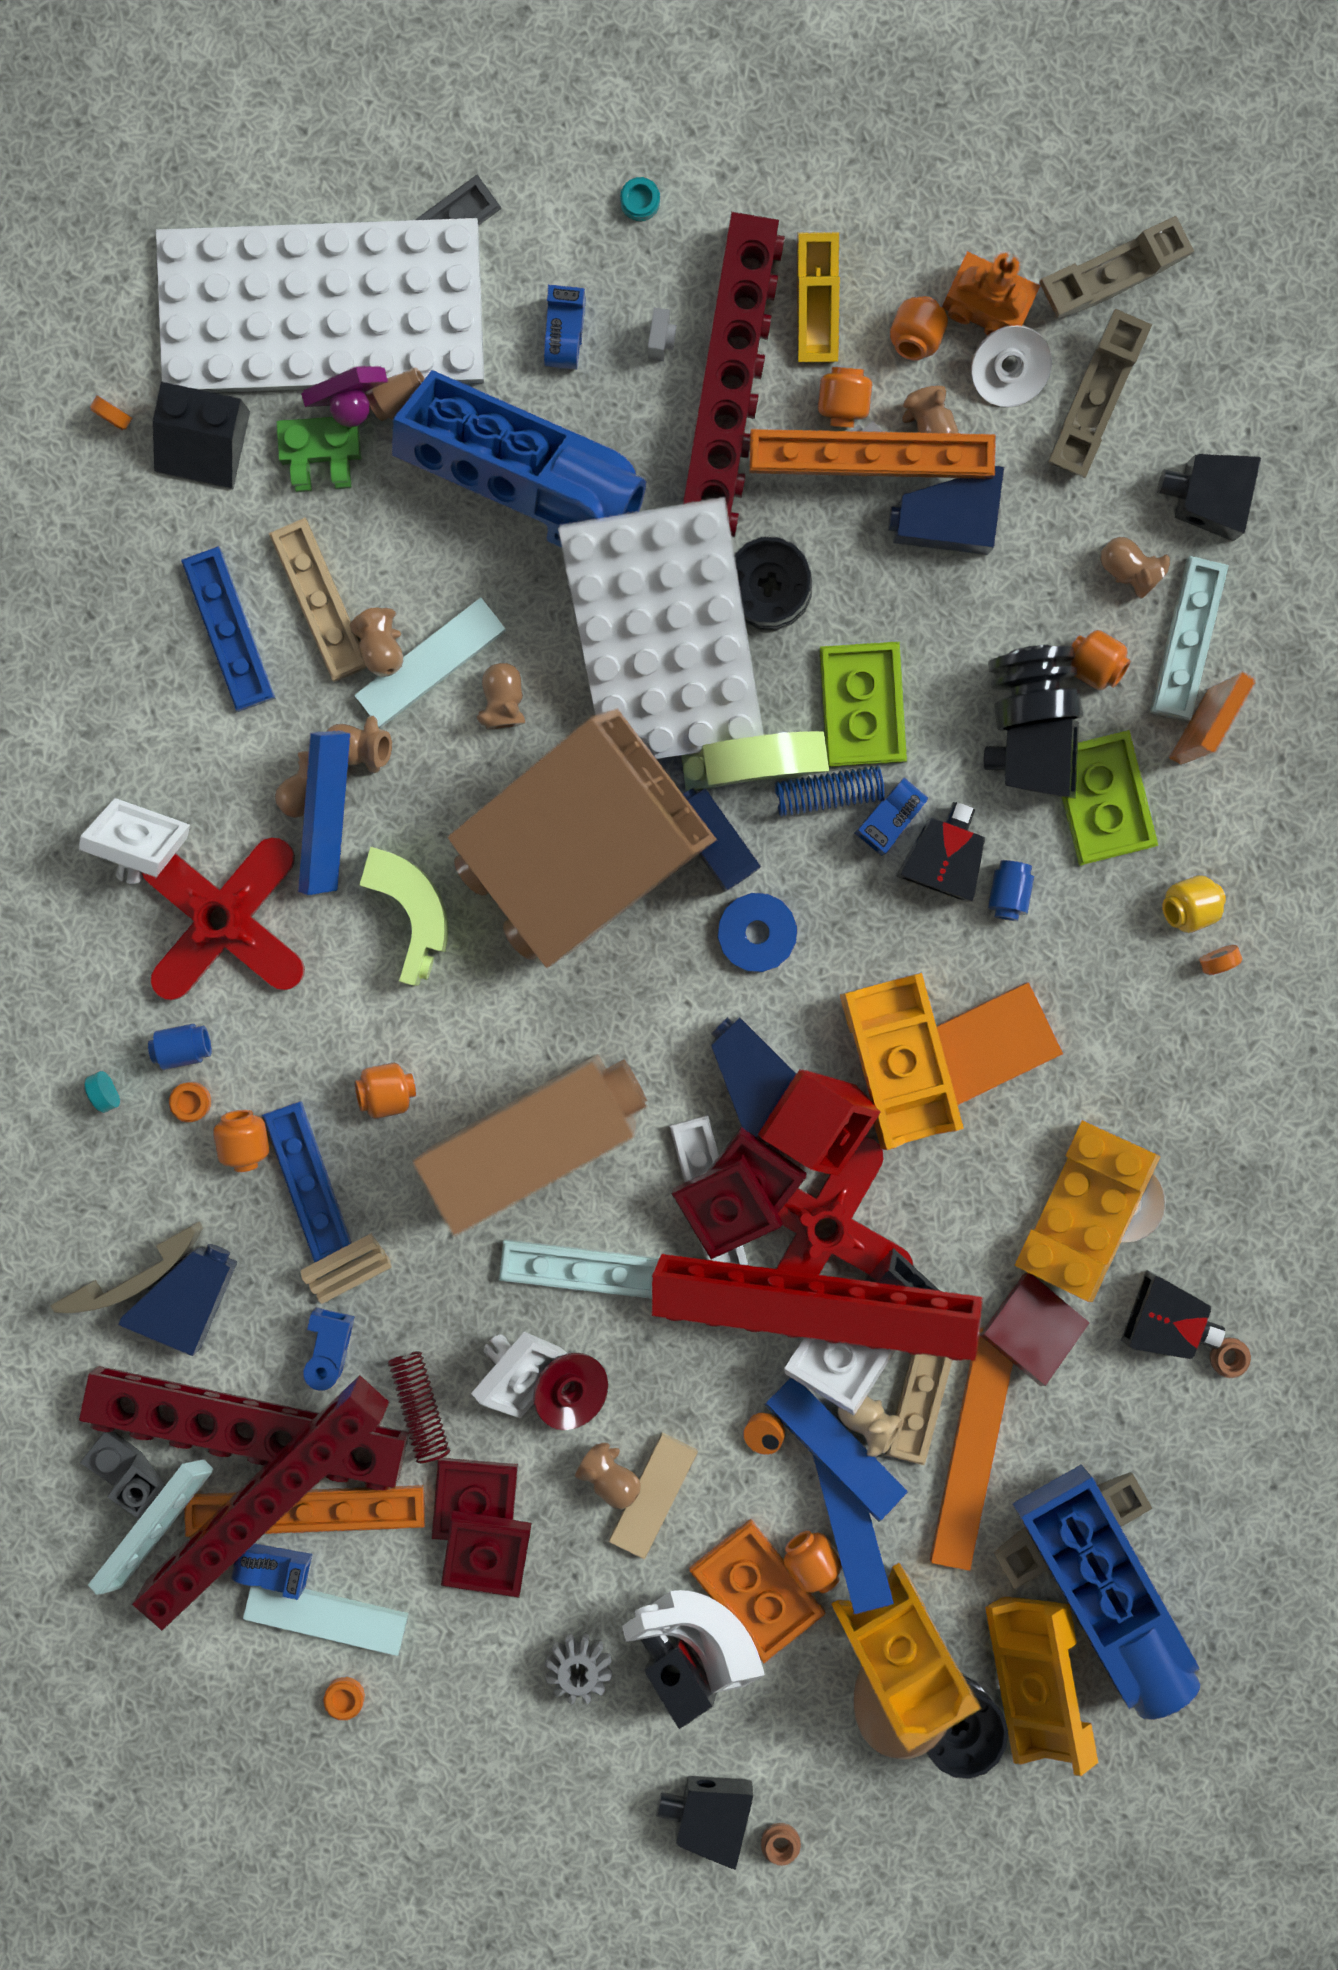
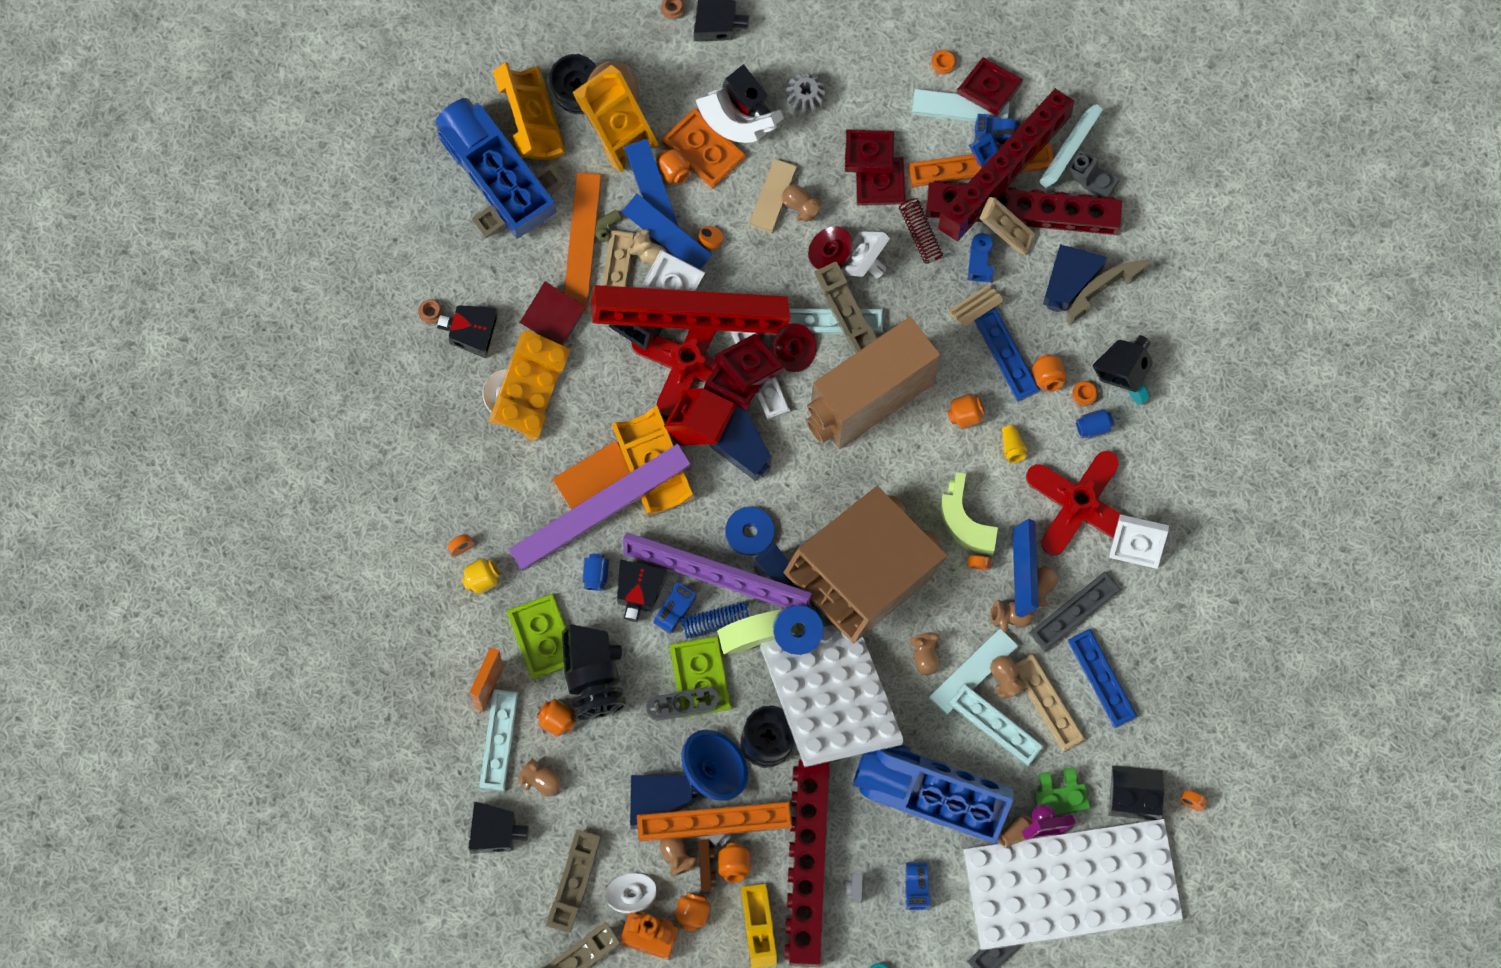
camera: 170 degrees right, 15 degrees down
(114, 1138) = (1125, 364): none -> black torso
(256, 742) = (1074, 611): none -> dark grey tile
(272, 1646) = (989, 86): none -> dark red tile
(274, 1396) = (1007, 225): none -> tan tile
(294, 1535) = (984, 149): none -> blue tile
(316, 1027) = (1013, 445): none -> yellow cone
(397, 836) = (979, 562): none -> orange tile
(407, 571) = (995, 725): none -> light aqua tile
(557, 1281) = (844, 307): none -> dark tan slope
(636, 1225) = (802, 344): none -> dark red dish
(701, 720) = (805, 642): none -> blue tile
(820, 856) = (714, 572): none -> medium lavender tile
(841, 547) = (714, 765): none -> blue dish
(889, 378) = (706, 855): none -> reddish brown plate
(928, 665) = (702, 708): none -> dark grey beam
(933, 1475) = (603, 225): none -> olive arm
(993, 993) = (600, 507): none -> medium lavender tile

